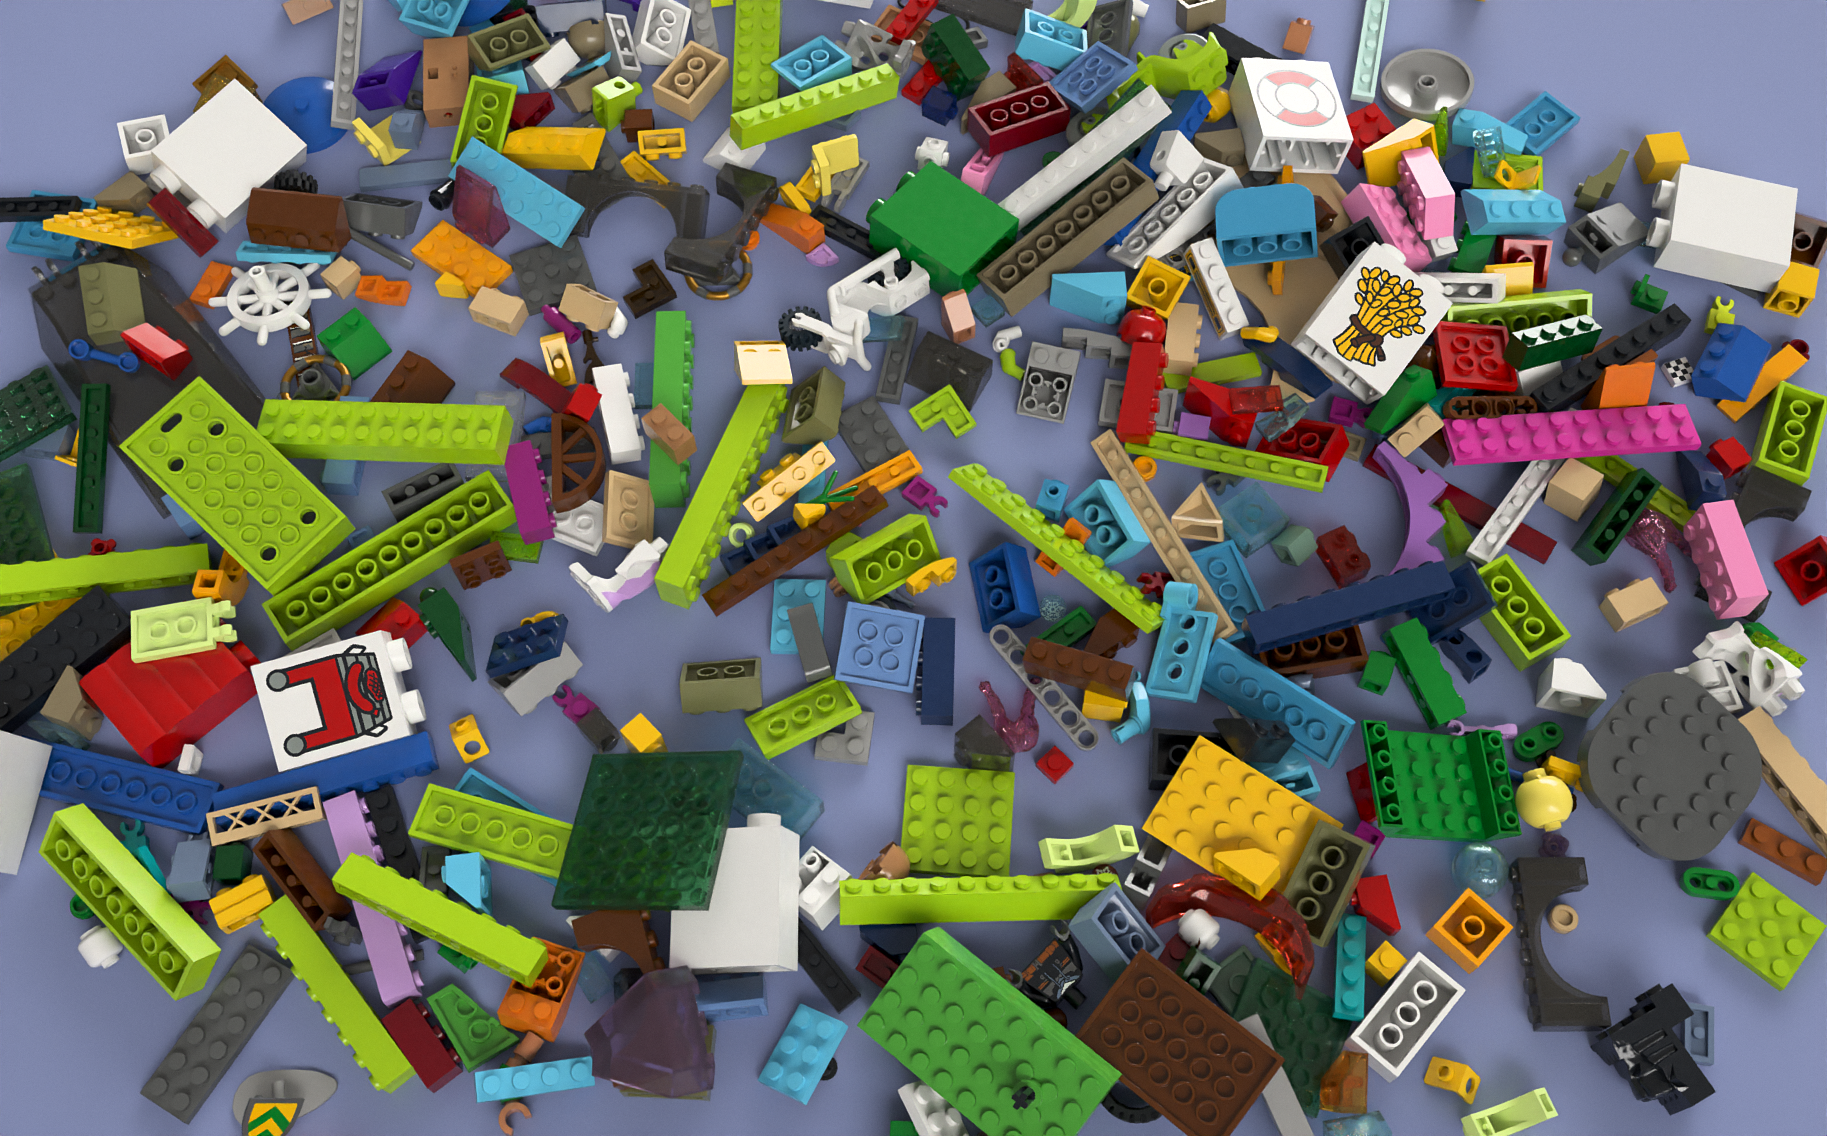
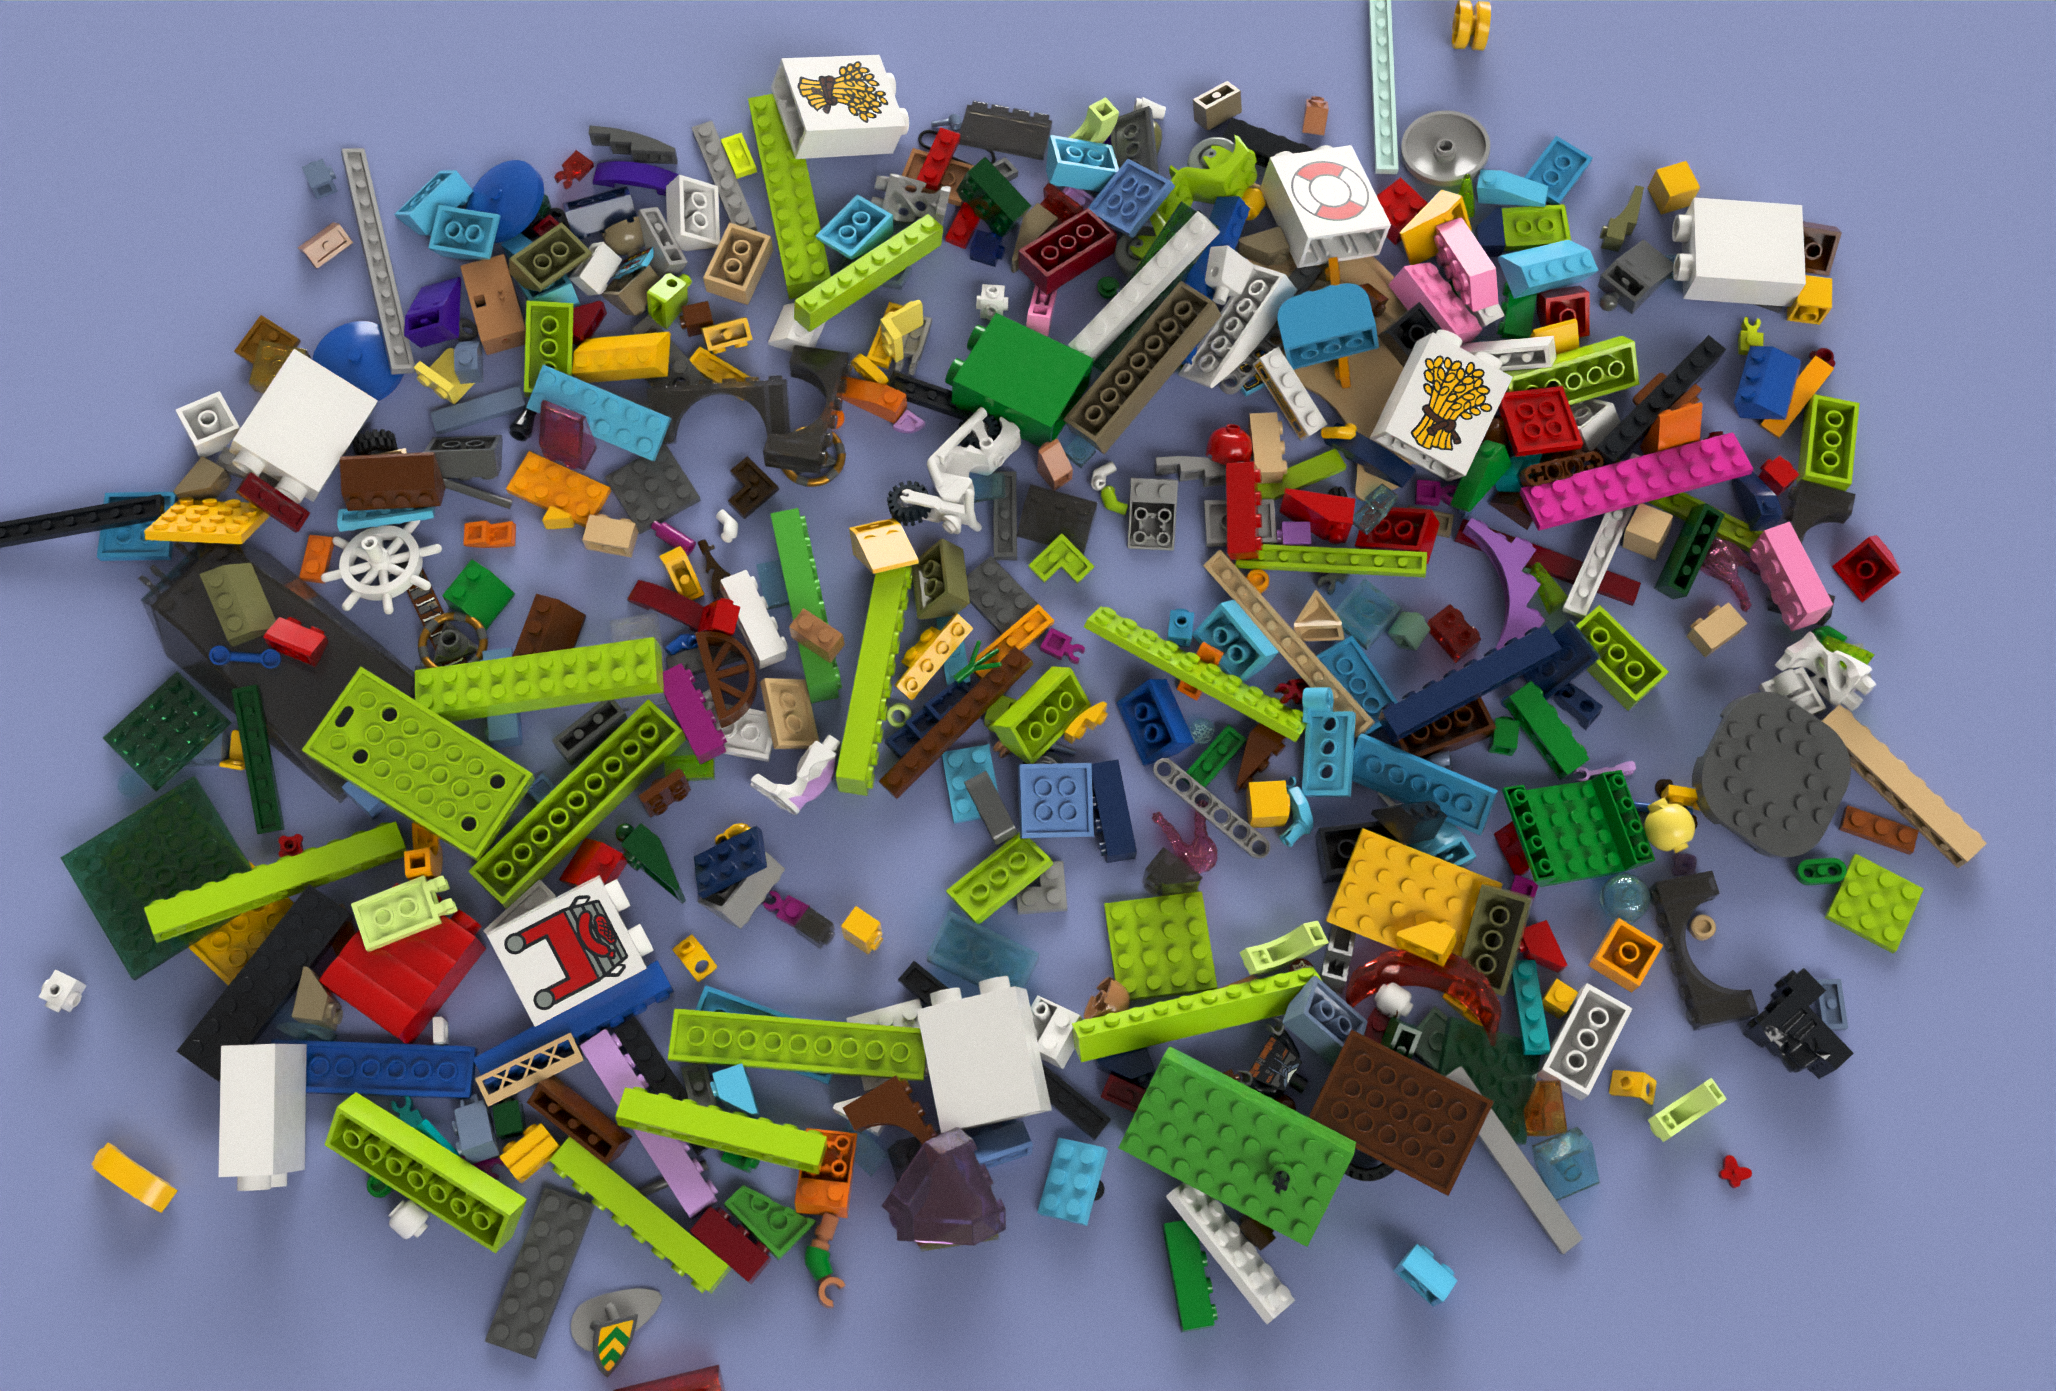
camera: 15 degrees left, 5 degrees up
(342, 277) = (446, 528): tan brick -> none
(342, 932) = (631, 1160): dark grey plate -> none
(533, 1079) = (841, 1254): medium azure plate -> none
(588, 307) = (697, 517): tan brick -> none
(649, 831) = (894, 1013): clear green plate -> none
(721, 686) = (918, 863): olive slope -> none
(808, 514) = (960, 686): yellow slope -> none
(1054, 765) = (1235, 877): red plate -> none
(1079, 669) = (1243, 788): reddish brown brick -> none
(1090, 295) = (1175, 421): medium azure slope -> none
(1157, 287) = (1235, 403): yellow slope -> none
(1256, 399) = (1350, 501): clear red plate -> none
(1415, 430) = (1498, 502): tan brick -> none
(1480, 144) = (1510, 212): clear light blue slope -> none
(1519, 180) = (1546, 234): yellow bracket -> none
(1540, 741) = (1656, 771): green plate -> none
(1552, 342) = (1606, 396): dark green brick -> none
(1568, 689) = (1673, 720): white slope -> none
(1648, 296) = (1683, 328): green bracket -> none
(1678, 372) = (1721, 398): white tile -> none

